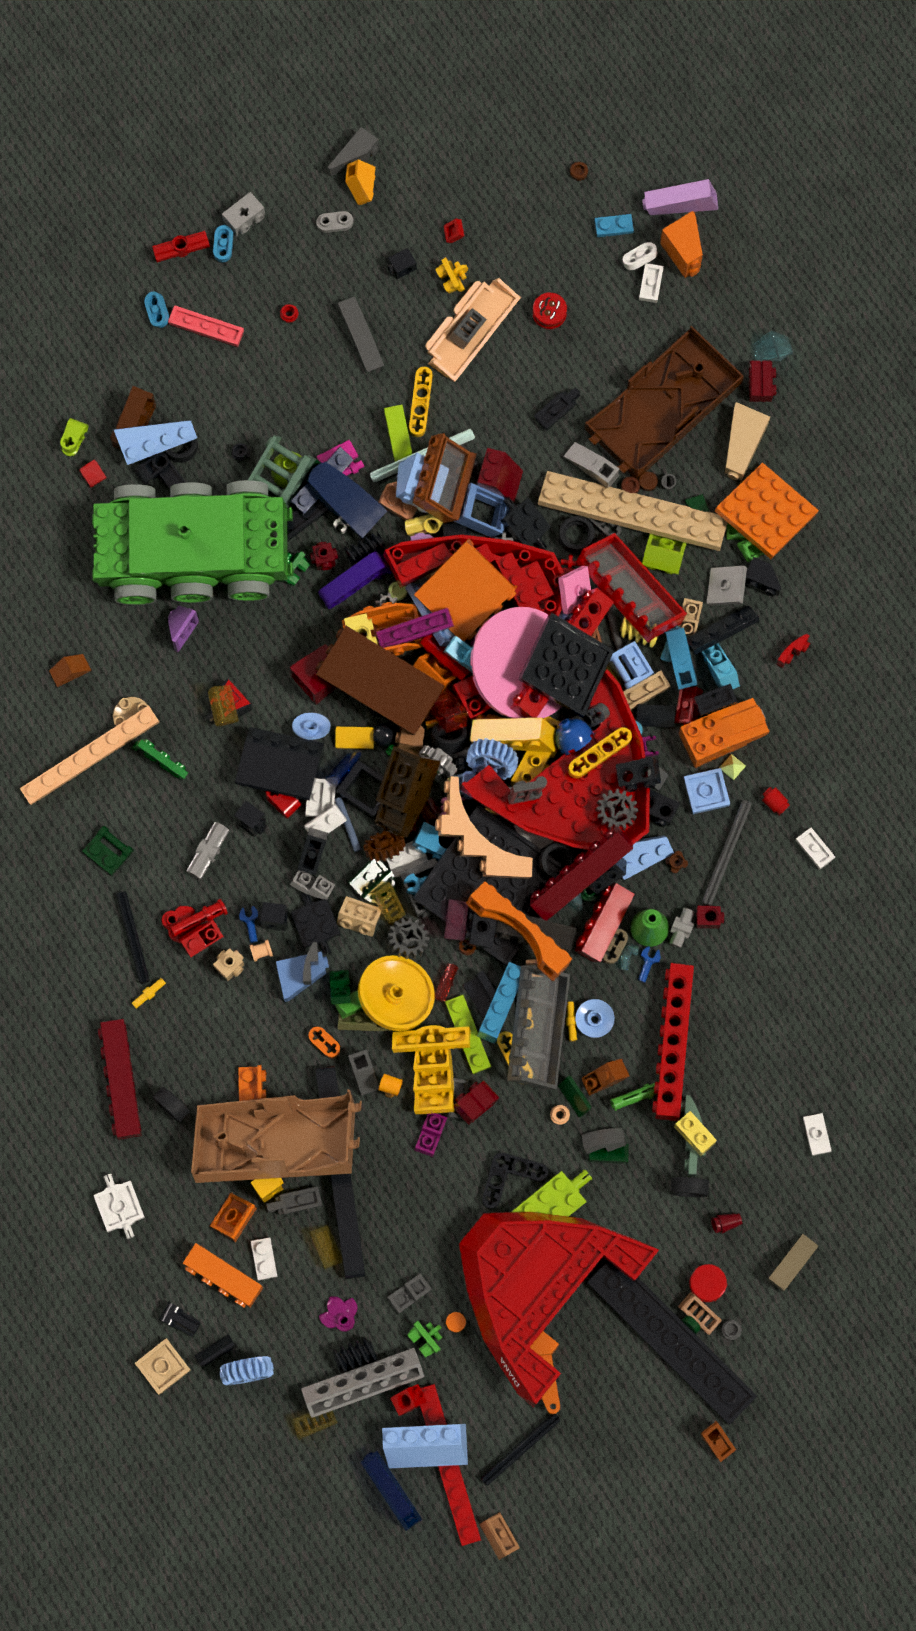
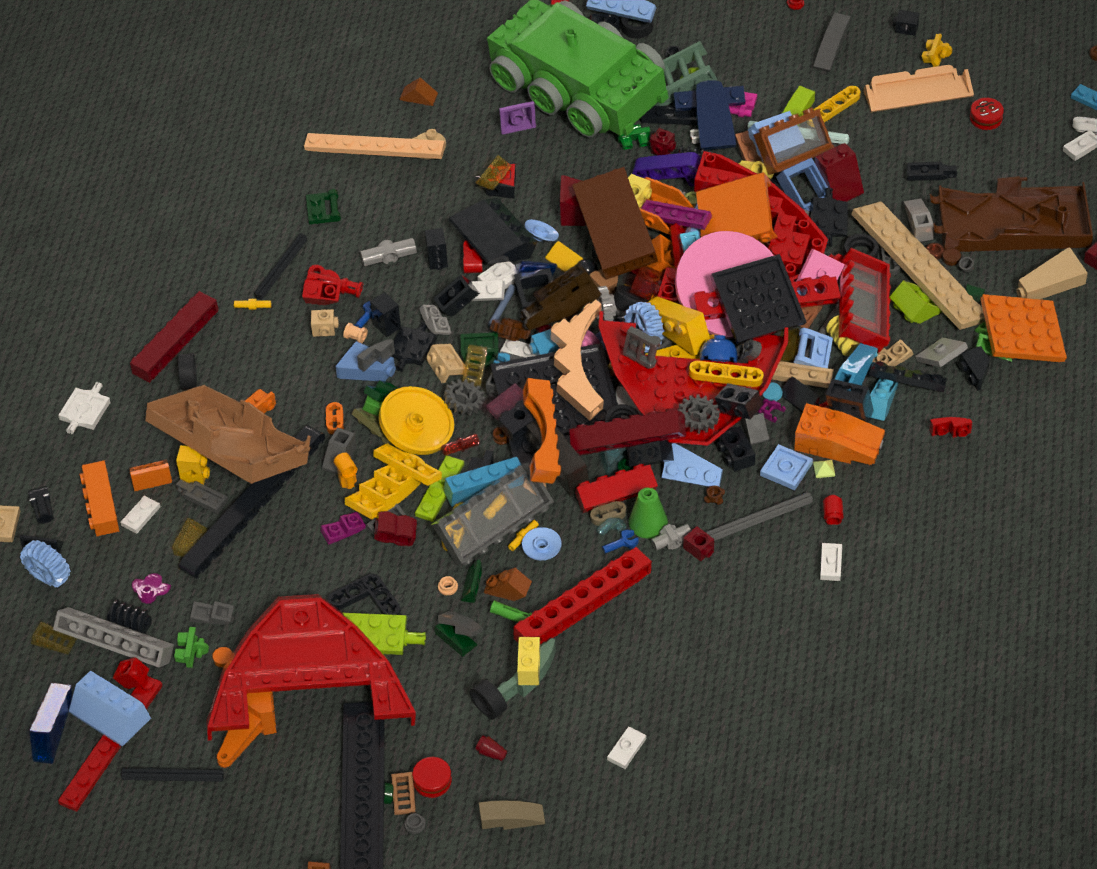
camera: 45 degrees right, 25 degrees down
(152, 754) = (417, 175): green wing -> none
(453, 230) = (965, 28): red plate -> none
(461, 338) = (902, 85): dark grey slope -> none
(499, 1536) = (92, 818): medium nougat slope -> none

